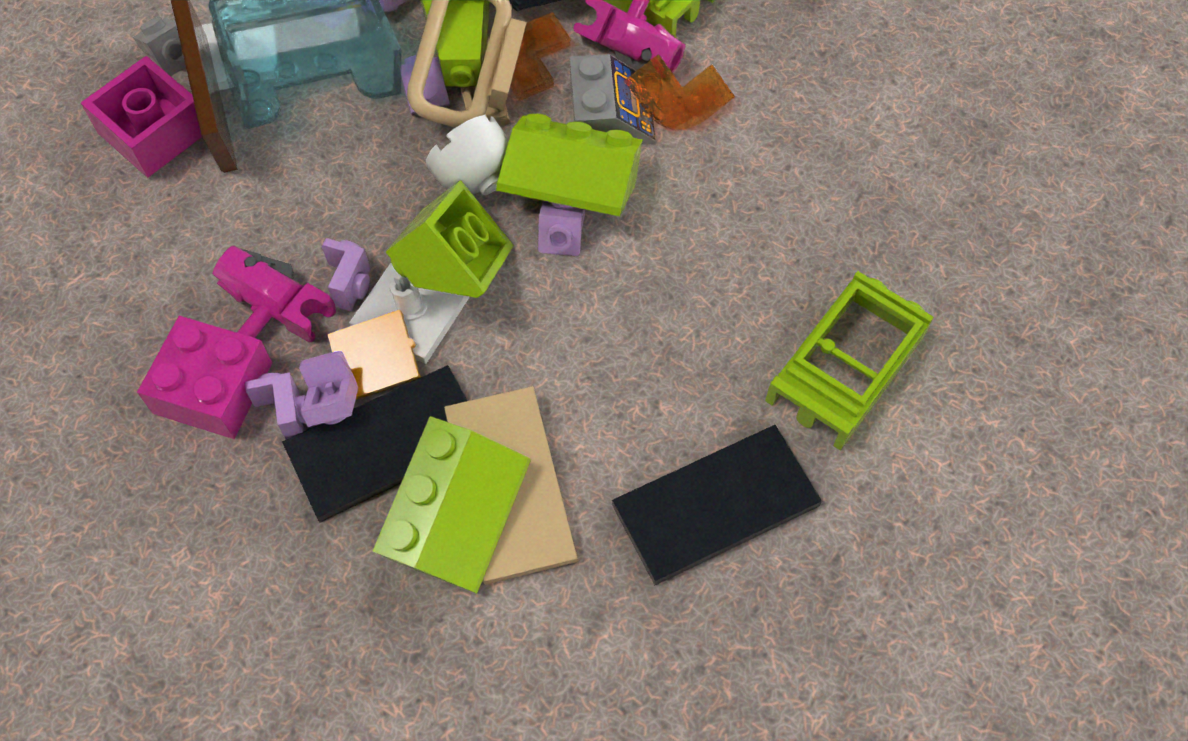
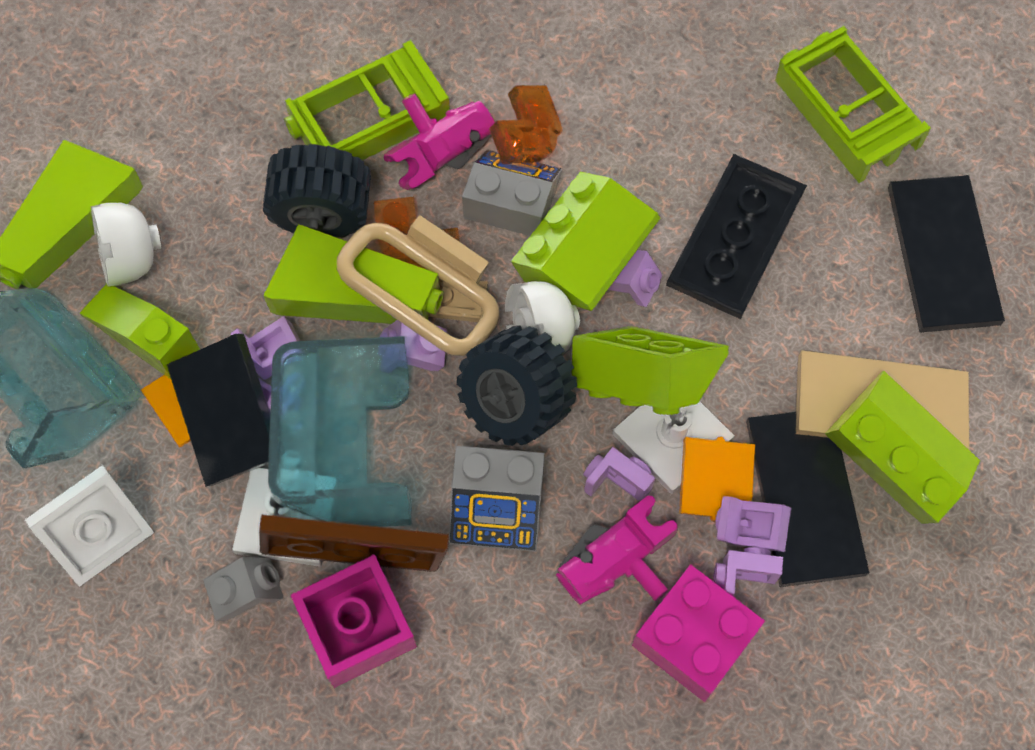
camera: 70 degrees left, 5 degrees up
(295, 185) = (496, 498): none -> slope
(392, 150) = (516, 385): none -> black wheel
(650, 304) = (736, 236): none -> black tile

